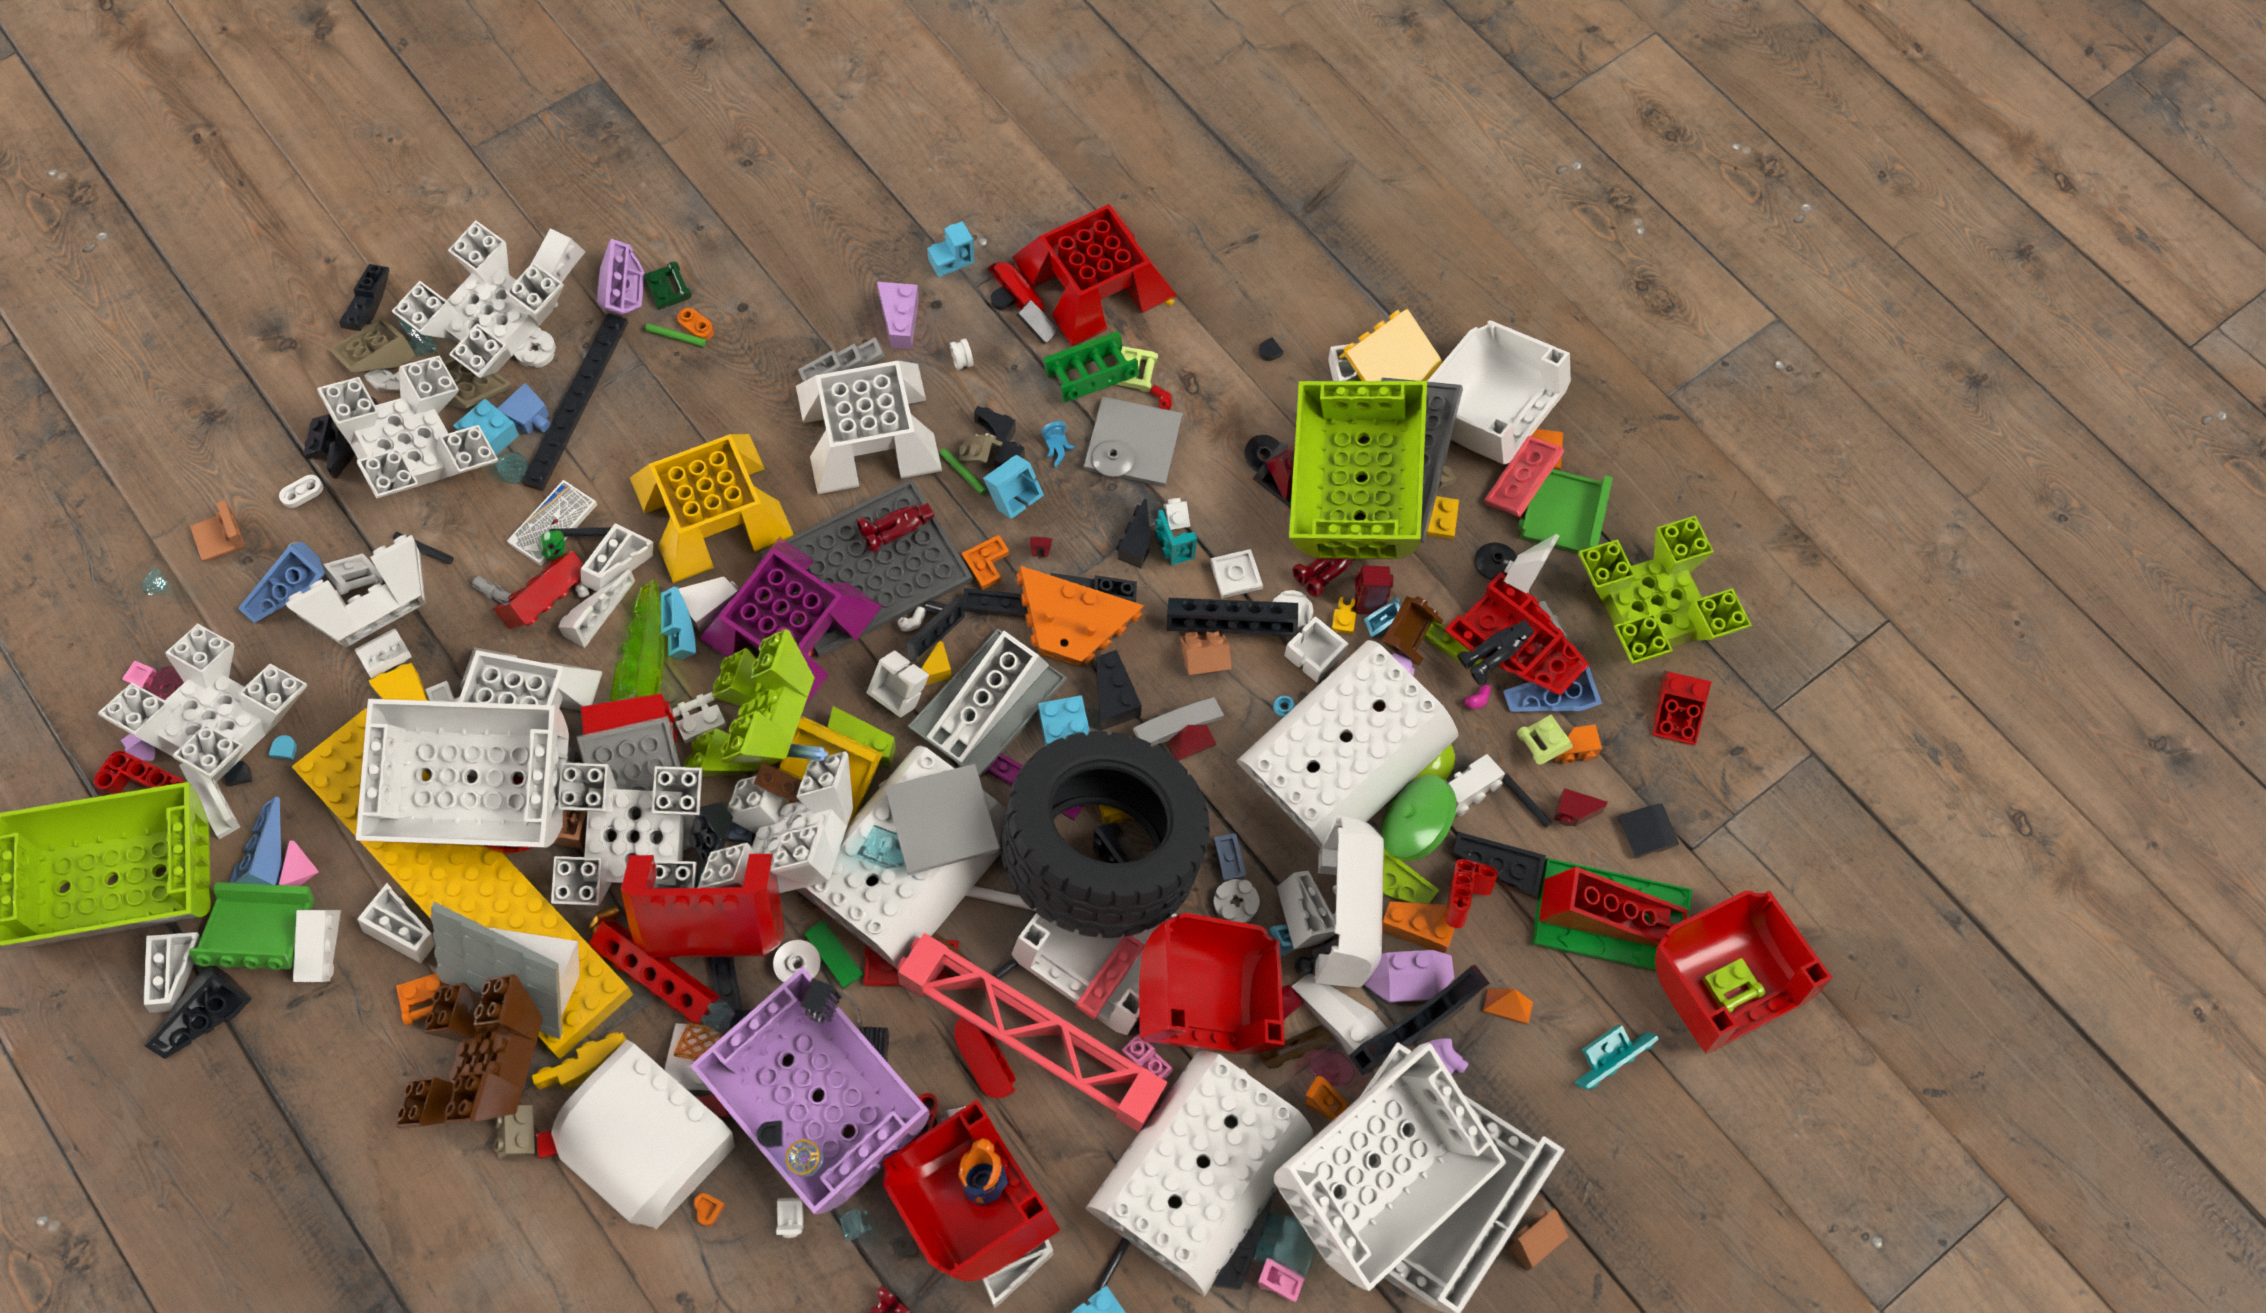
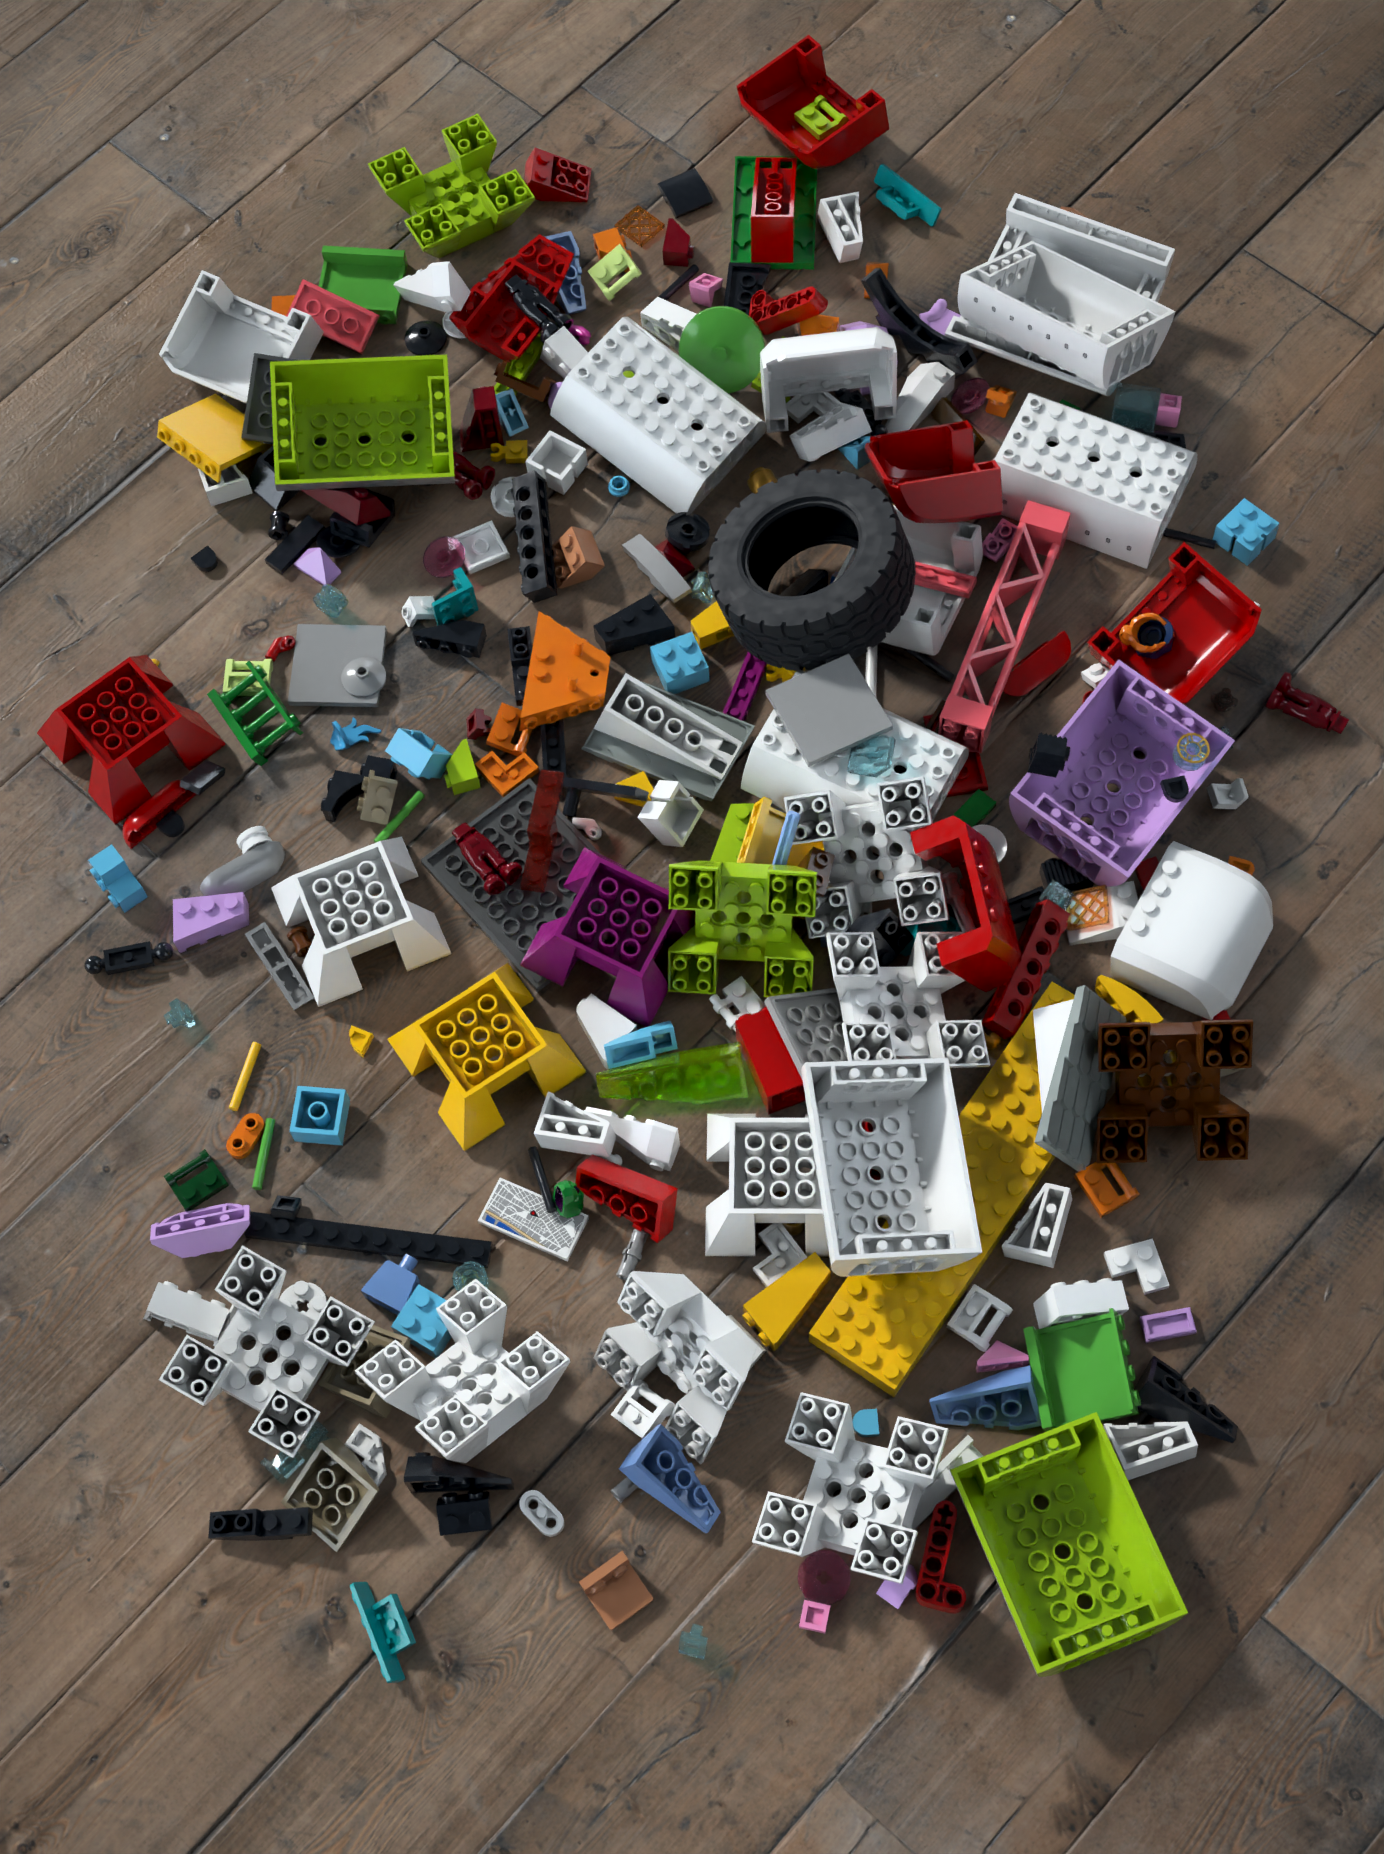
camera: 90 degrees left, 0 degrees up
(253, 370) = (386, 1628): none -> teal bracket
(276, 1020) = (1167, 1325): none -> lavender tile
(344, 1013) = (1143, 1260): none -> white plate
(345, 852) = (971, 1313): none -> white plate
(430, 550) = (590, 1351): black bar -> none
(621, 343) = (286, 1207): none -> black tile
(689, 373) = (320, 1115): none -> medium azure brick
(749, 329) = (245, 1076): none -> yellow bar
(756, 416) = (360, 1040): none -> yellow tile
(816, 286) = (179, 1014): none -> clear light blue tile
(880, 254) = (128, 958): none -> black plate
(905, 572) = (542, 831): none -> clear red bracket
(938, 348) = (245, 870): none -> light grey brick
(997, 522) = (461, 770): none -> lime slope
(1029, 560) = (504, 729): none -> orange plate
(1199, 439) = (330, 600): none -> clear light blue wheel
(1210, 769) = (684, 541): none -> black plate
(1228, 539) = (439, 551): none -> clear pink dish
(1237, 441) = (318, 566): none -> lavender slope
(1257, 837) = (760, 477): none -> pearl gold head
(1271, 420) = (294, 545): none -> black tile
(1289, 409) = (278, 525): none -> black bush
(1444, 675) = (562, 352): none -> white wedge
(1517, 826) = (703, 289): none -> bright pink slope
(1580, 980) = (842, 225): none -> white wedge
(1626, 770) = (658, 223): none -> clear orange window

